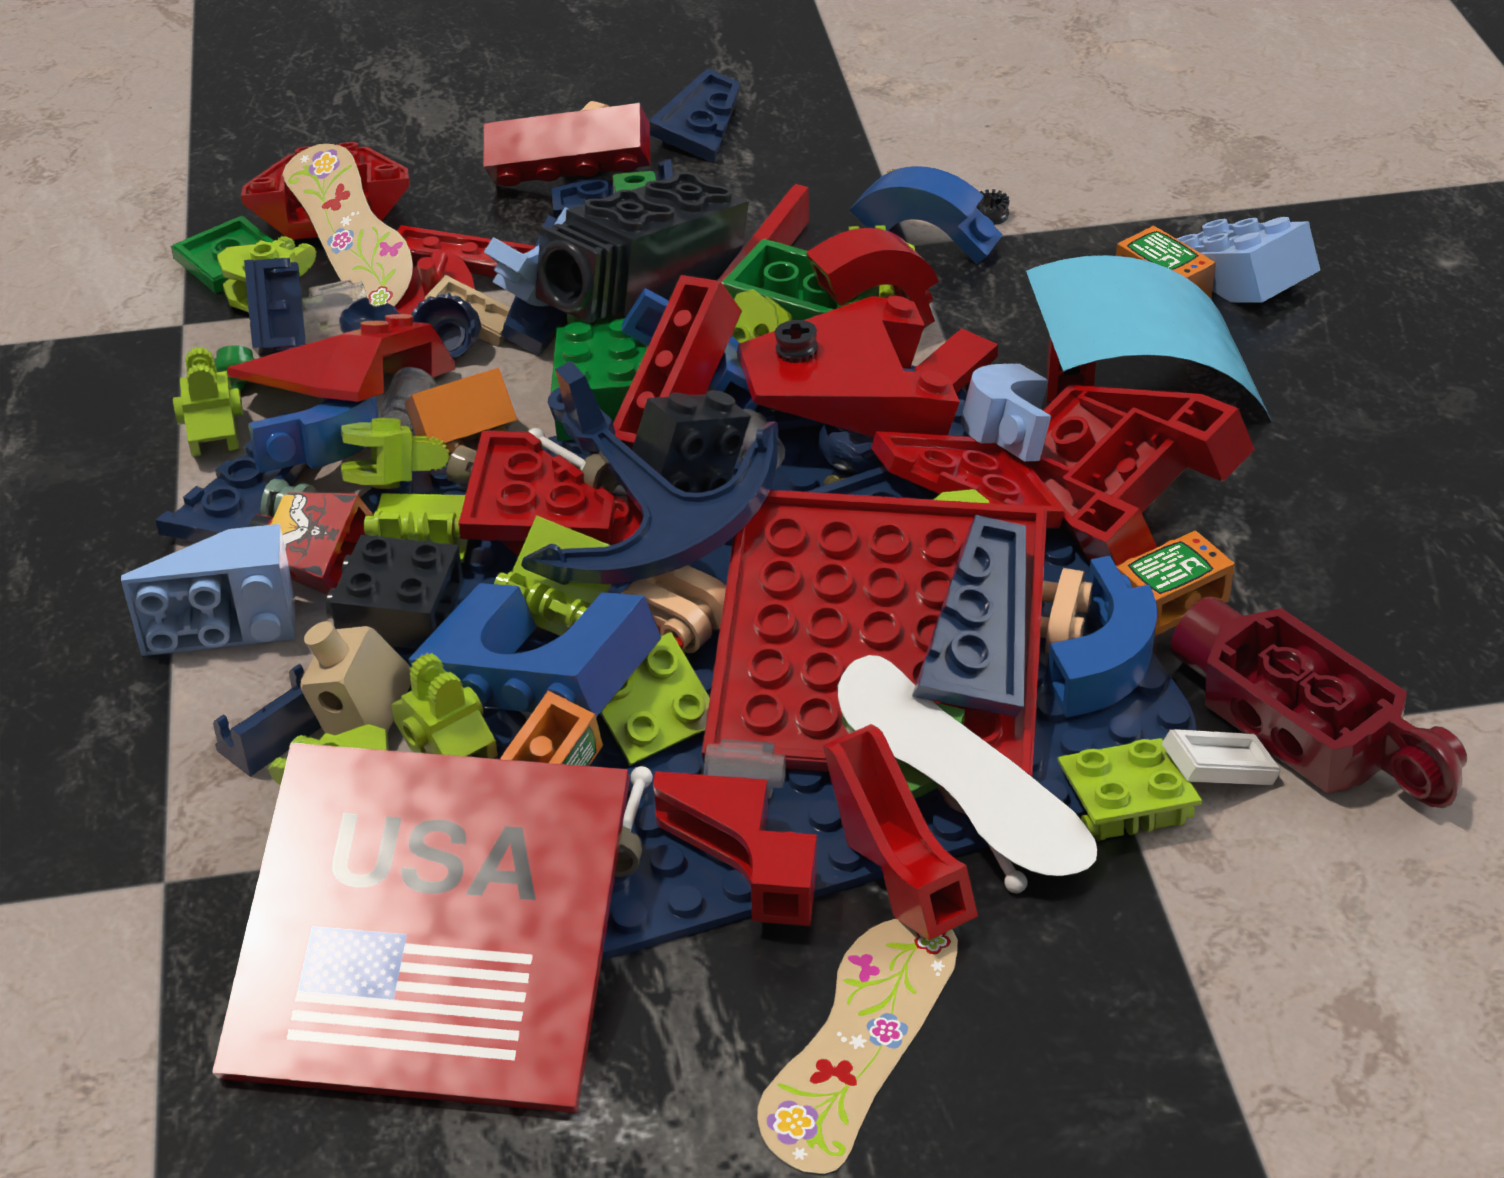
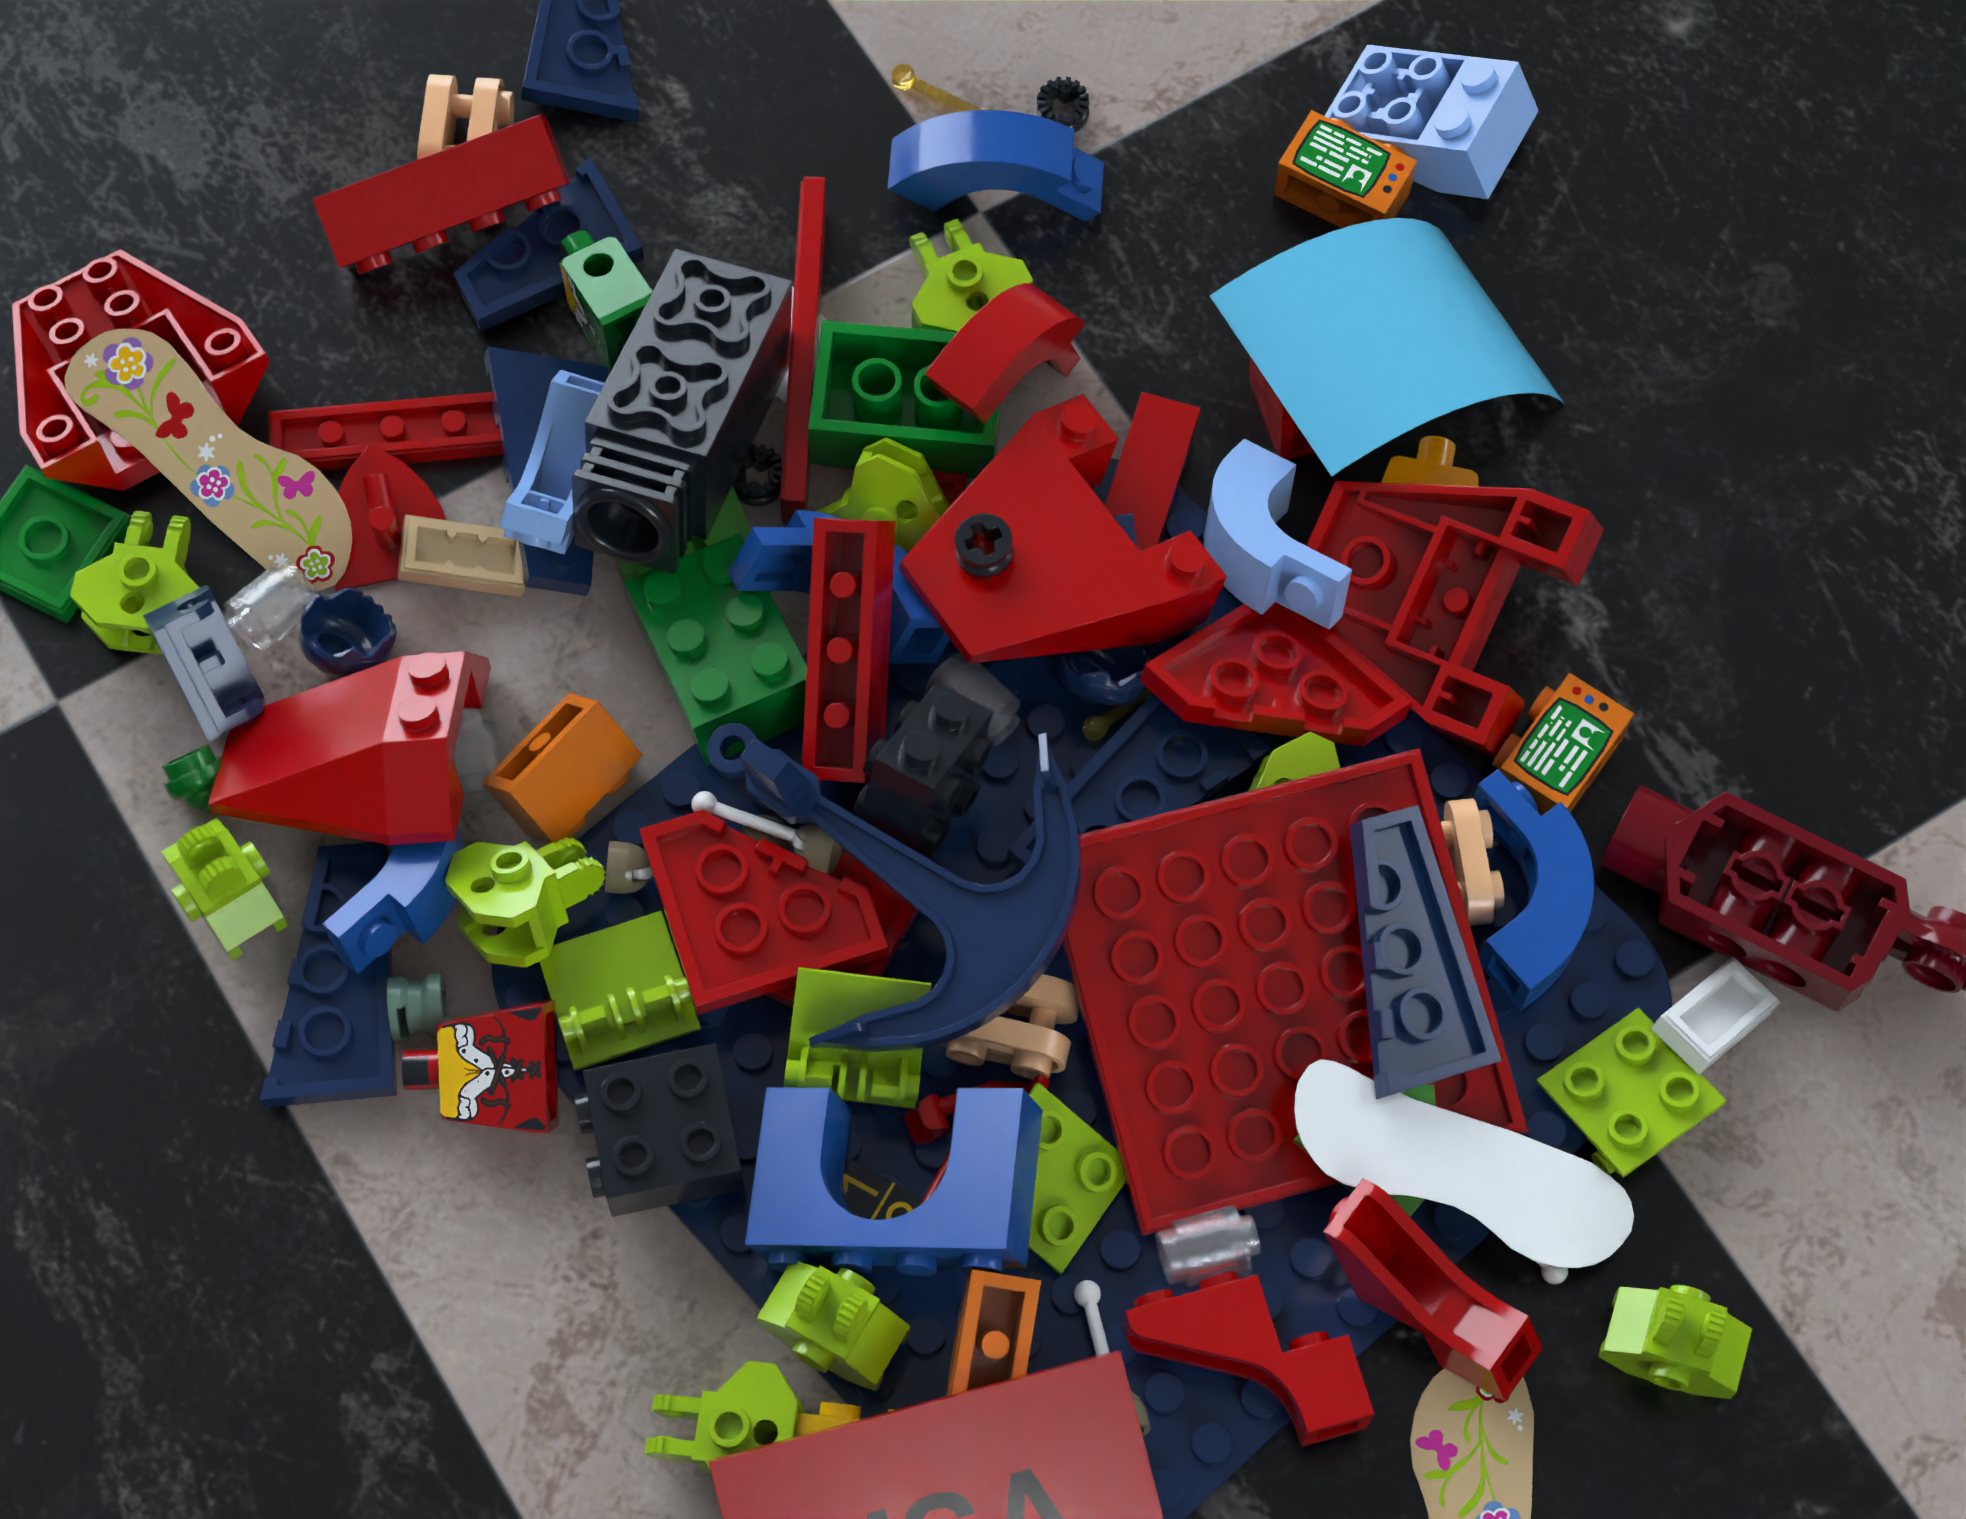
camera: 25 degrees left, 25 degrees up
(214, 594) = (439, 1205): light blue slope -> none
(268, 731) = (599, 1367): dark blue hinge -> none
(352, 678) = (689, 1293): tan torso -> none
(453, 321) = (454, 610): dark blue hair -> none
(1091, 934) = (1676, 1340): none -> lime hinge

